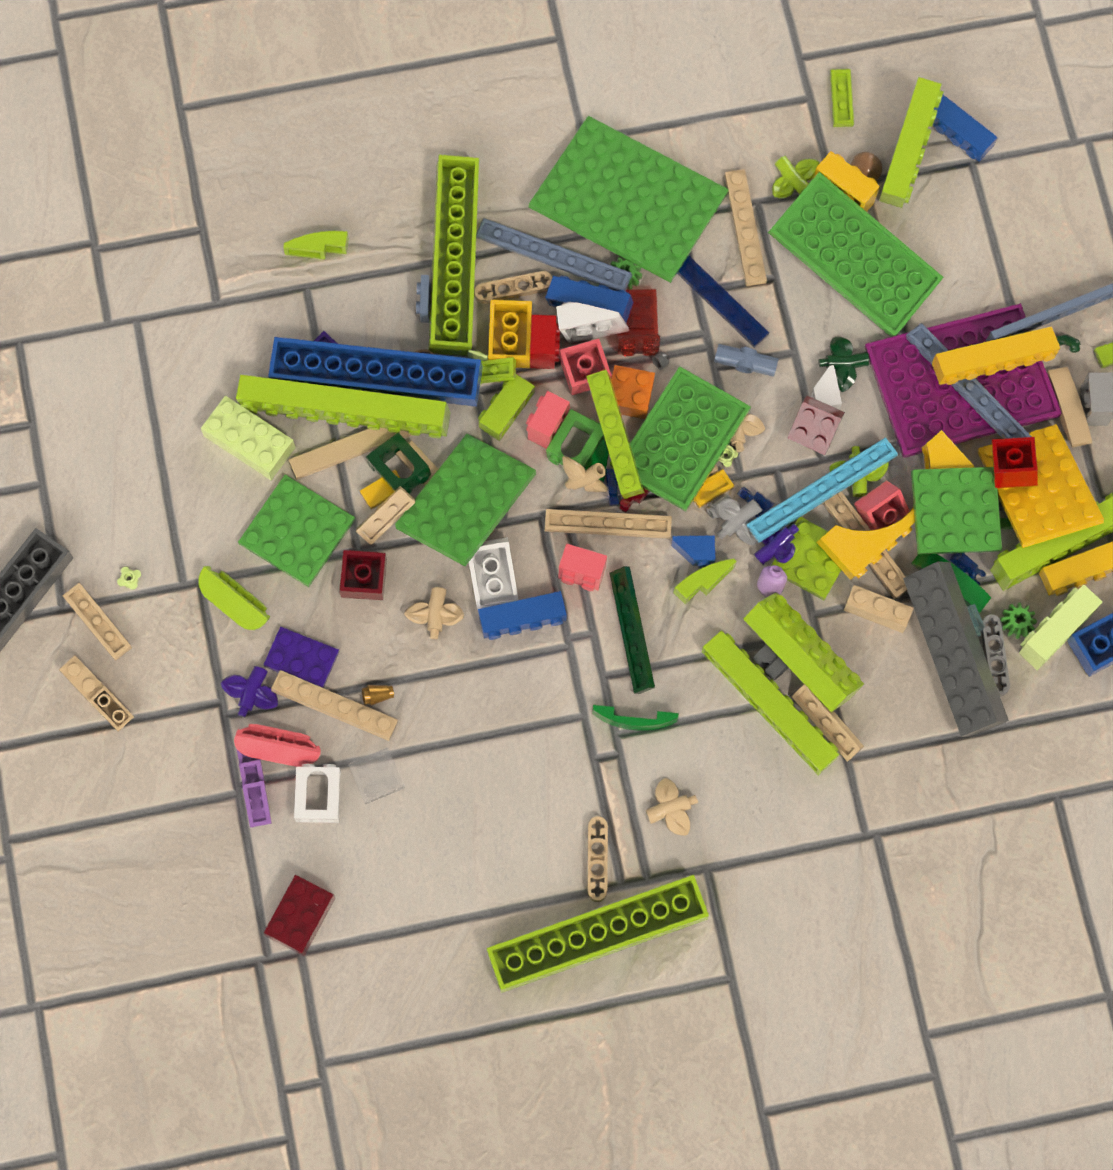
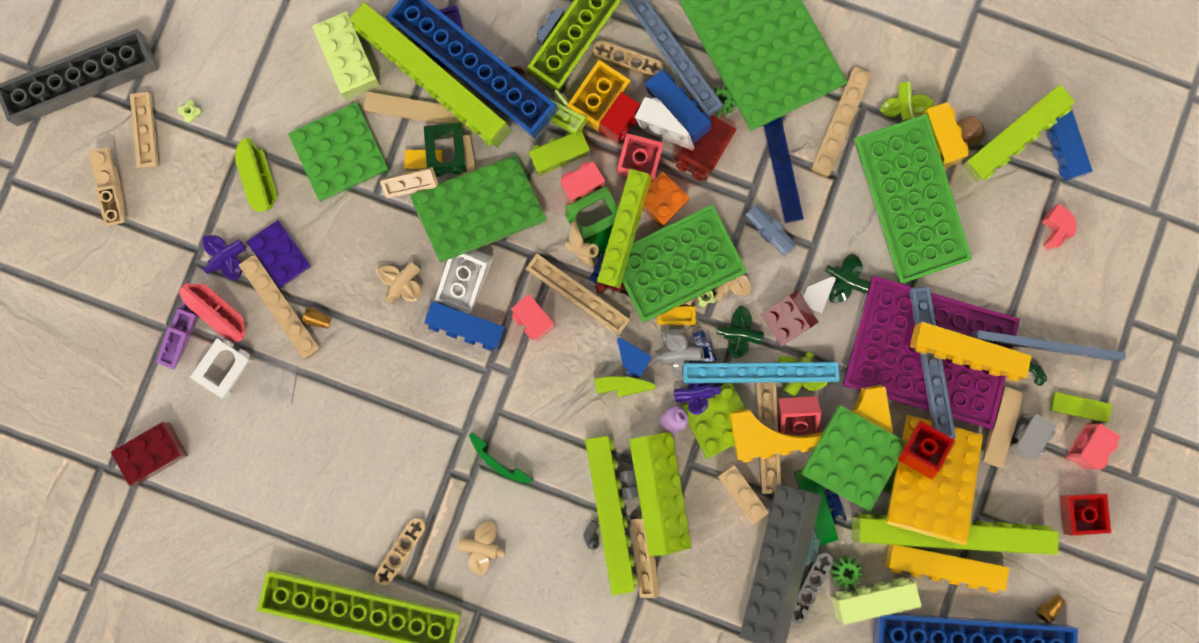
camera: 30 degrees right, 10 degrees up
(363, 575) = (363, 219): dark red brick -> none
(632, 630) = (541, 390): dark green plate -> none
(660, 360) = (704, 188): dark grey hinge -> none
(765, 735) = (590, 536): none -> dark grey arm
(779, 467) = (740, 333): none -> dark green plant
(842, 98) = (988, 62): lime tile -> none
(1001, 198) = (1062, 224): none -> coral brick

